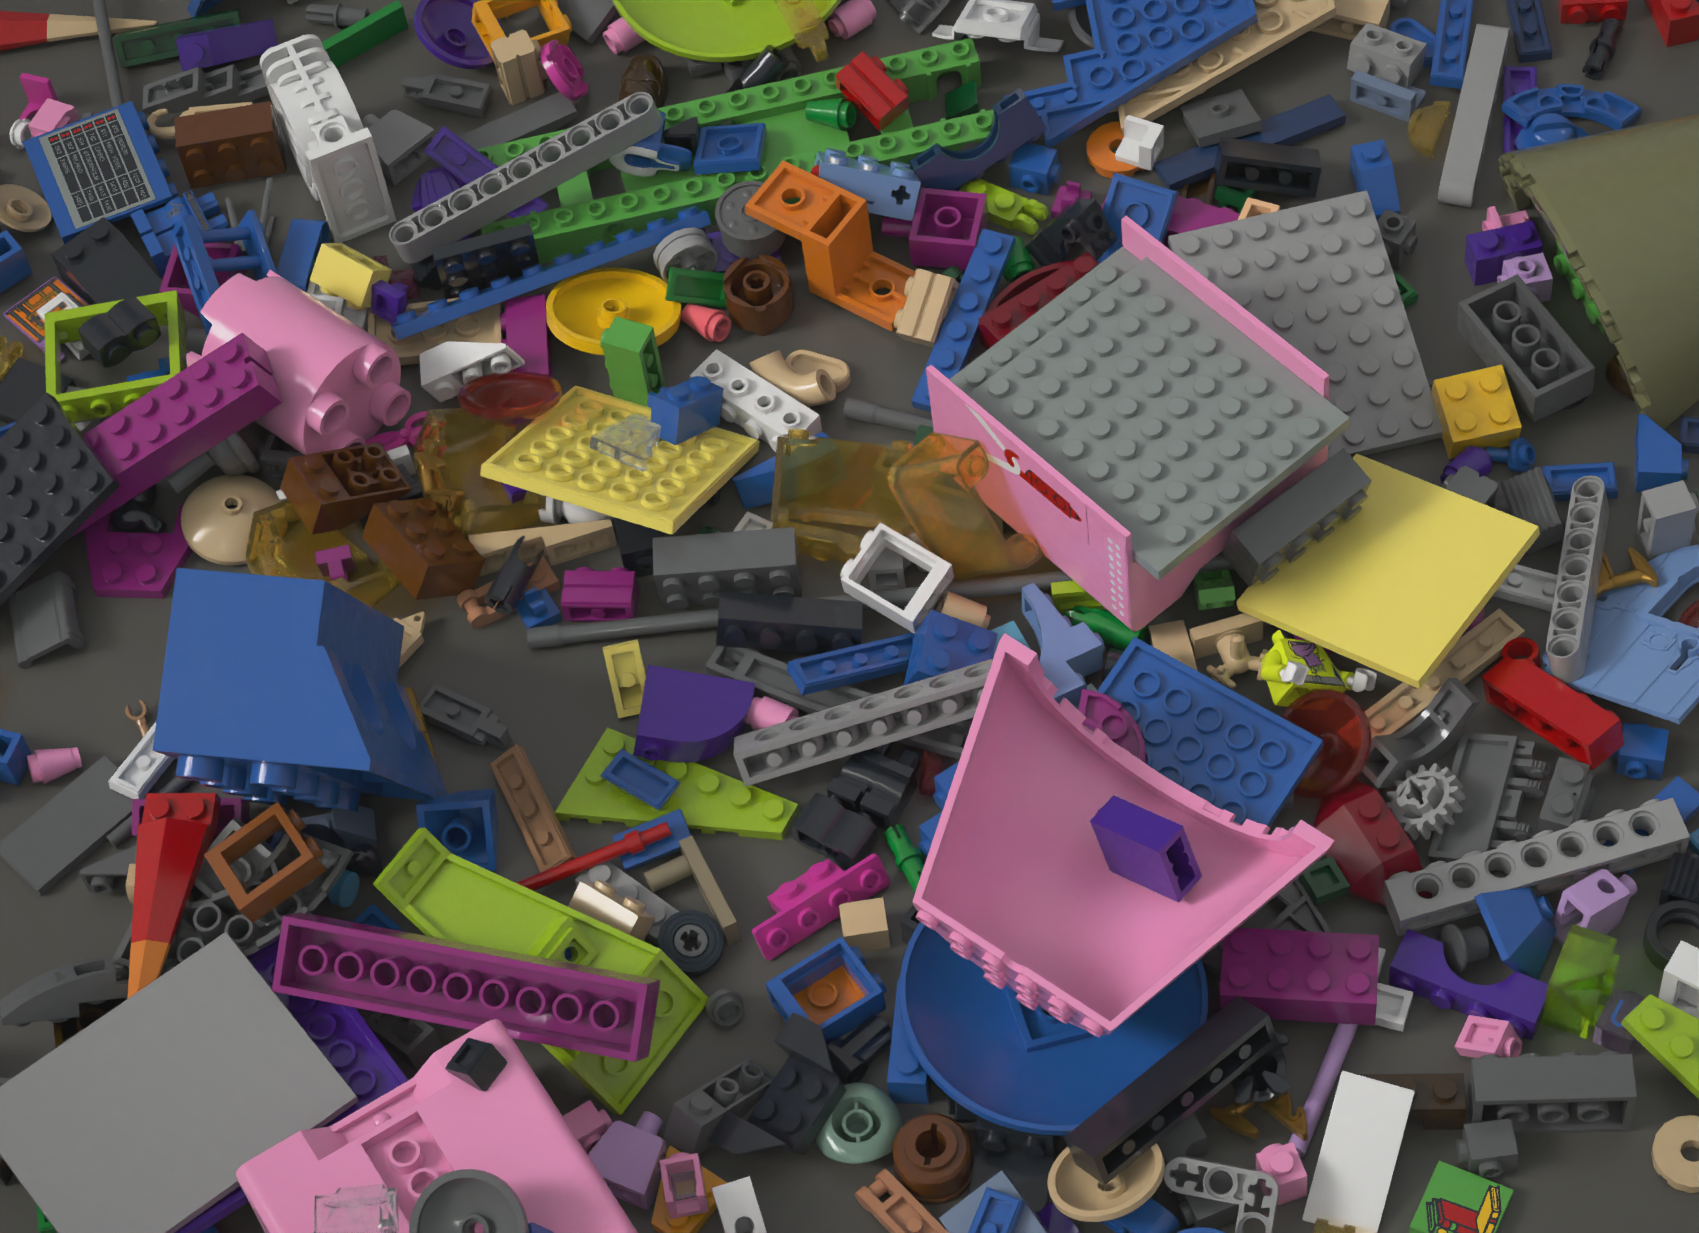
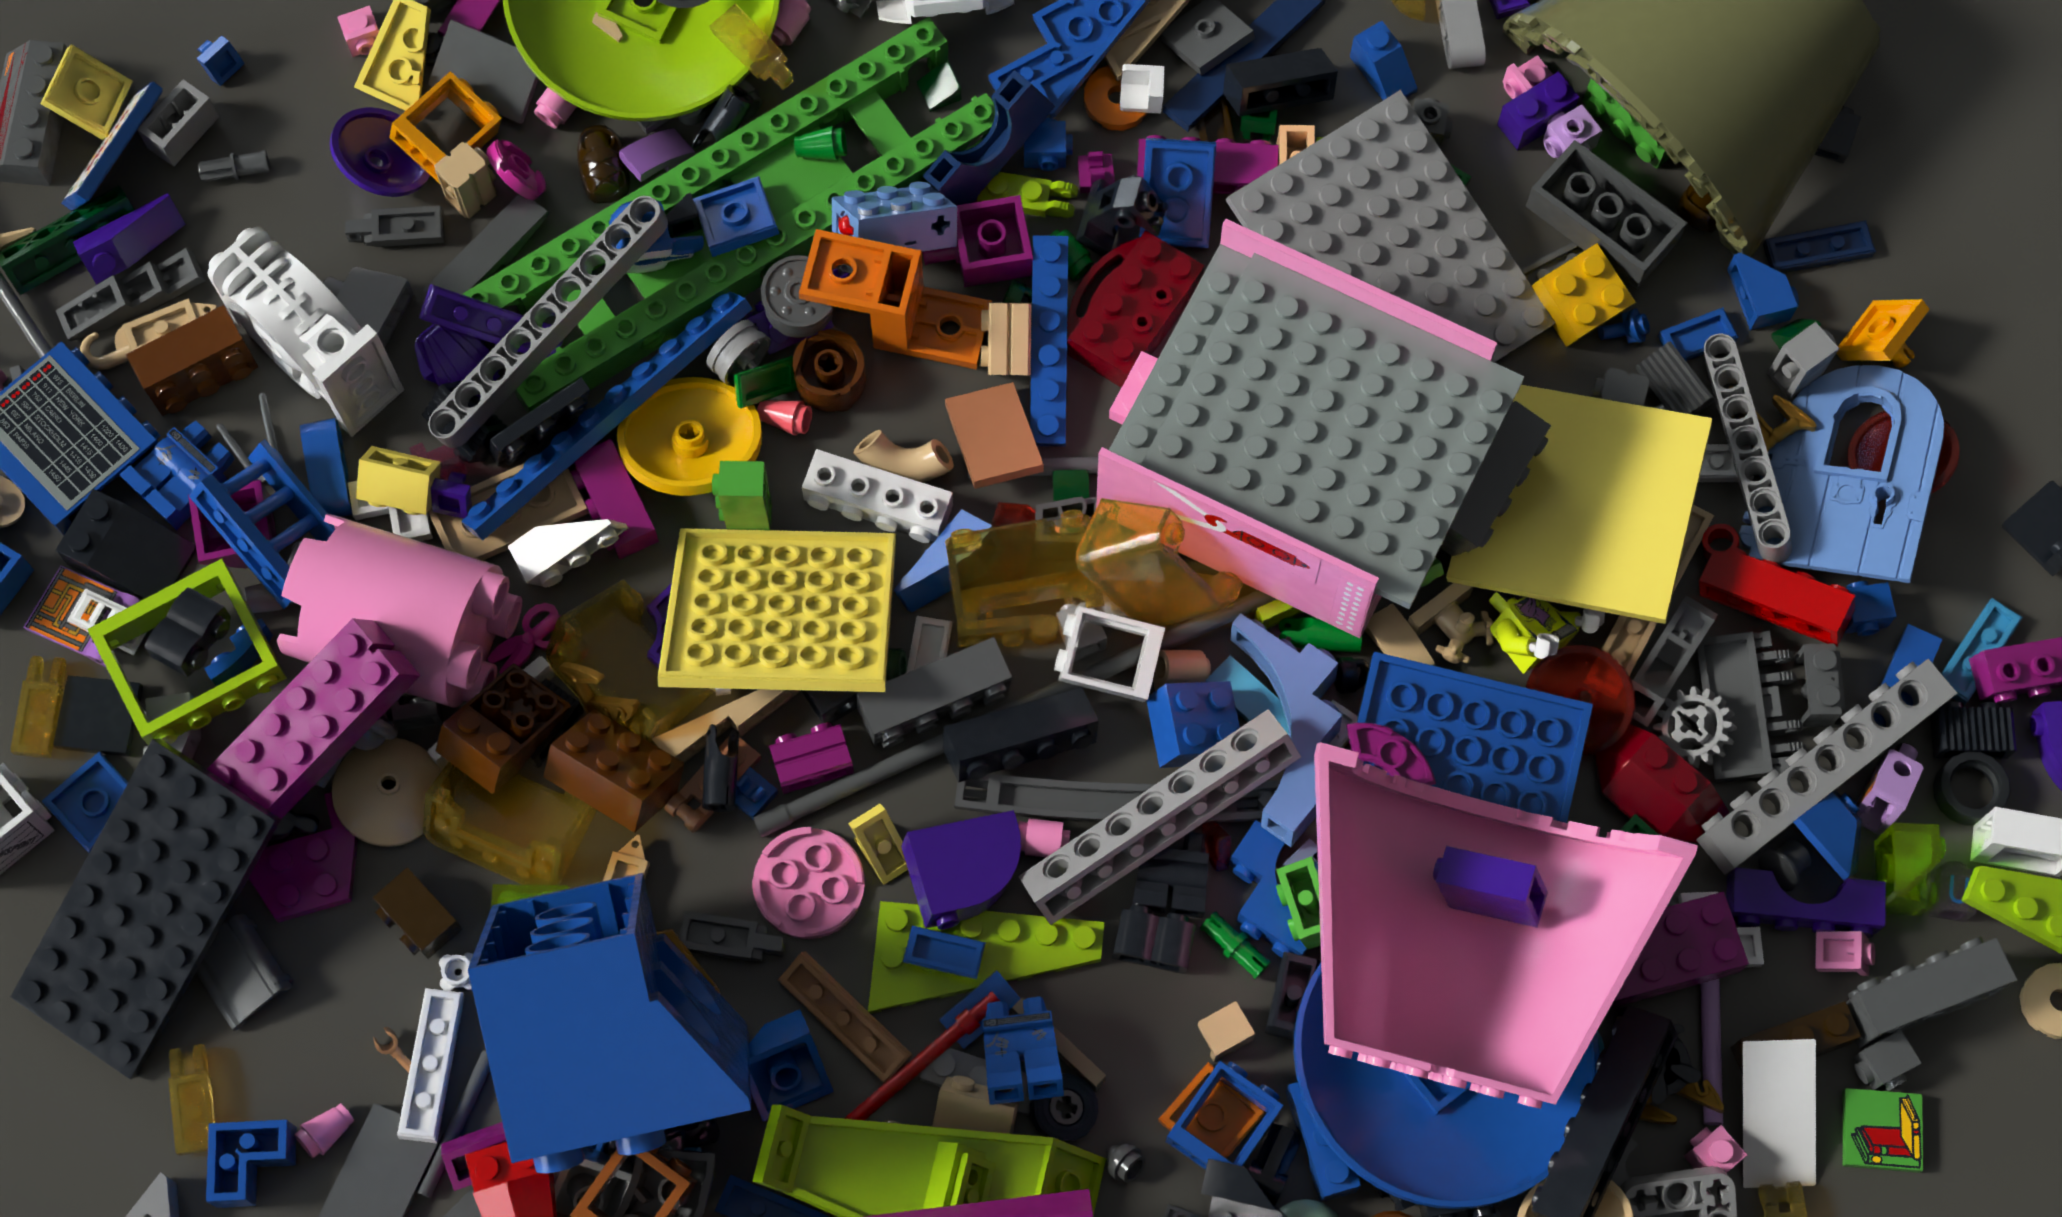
camera: 30 degrees left, 15 degrees up
(336, 562) = (524, 811): magenta tile -> none
(366, 34) = (266, 192): green tile -> none
(510, 397) = (634, 573): clear red dish -> none
(553, 697) = (808, 883): none -> bright pink tile
(628, 440) = (782, 589): clear wing -> none
(663, 868) = (1017, 1039): none -> blue hips
(686, 87) = (655, 152): none -> medium lavender slope
(686, 409) = (815, 530): blue brick -> none
(807, 361) = (917, 431): tan tile -> none
(815, 900) = (1163, 1018): dark pink bracket -> none
(851, 664) = (1101, 757): blue tile -> none
(873, 90) = (858, 109): red brick -> none
(880, 384) = (994, 435): none -> nougat tile
(1472, 457) = (1593, 358): dark purple brick -> none

